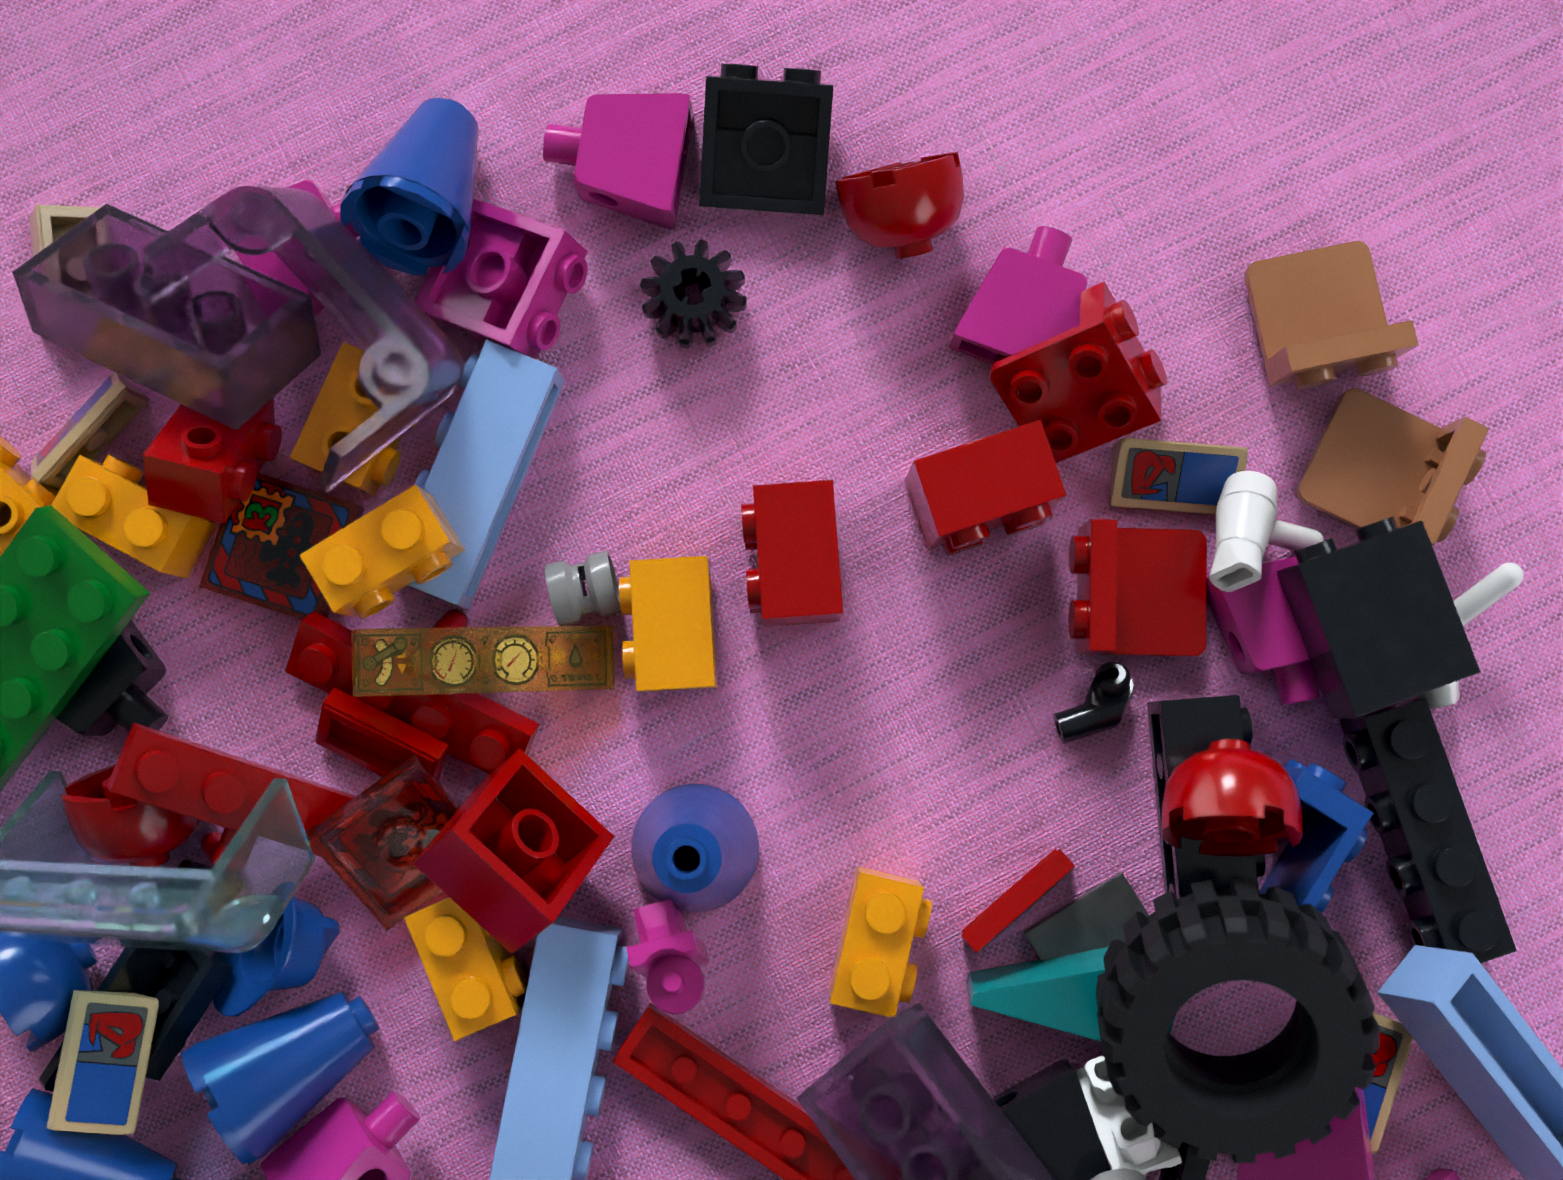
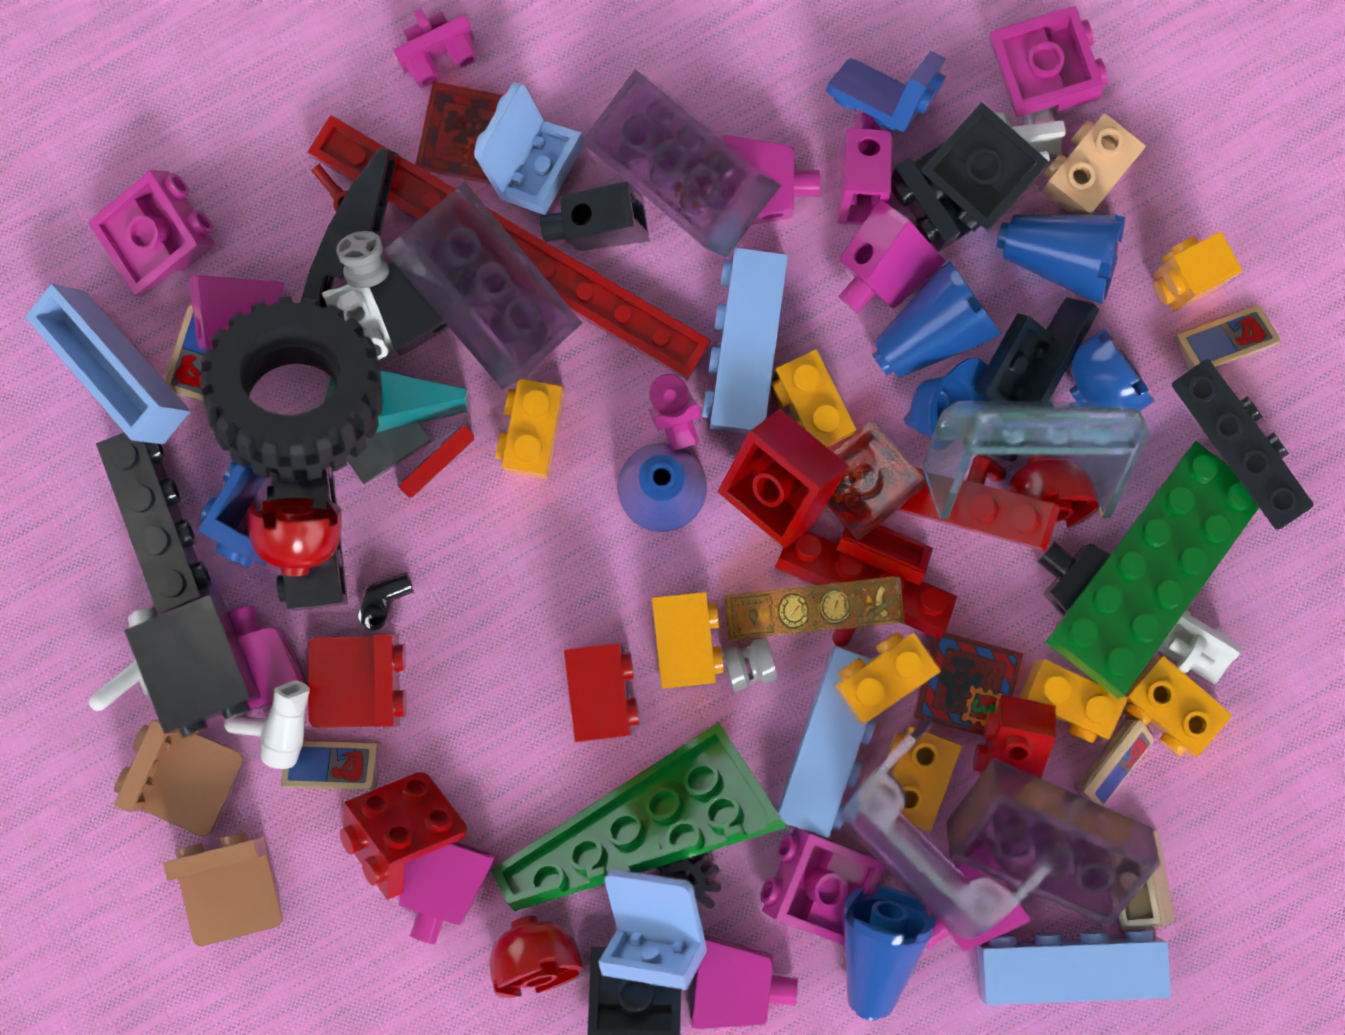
camera: 175 degrees right, 0 degrees up
(103, 1062) = (1051, 324): slope -> none
(161, 152) = (1073, 969): none -> light blue brick
(710, 383) = (667, 813): none -> green wing
(733, 217) = (656, 932): none -> light blue bracket
(985, 486) = (468, 746): red brick -> none

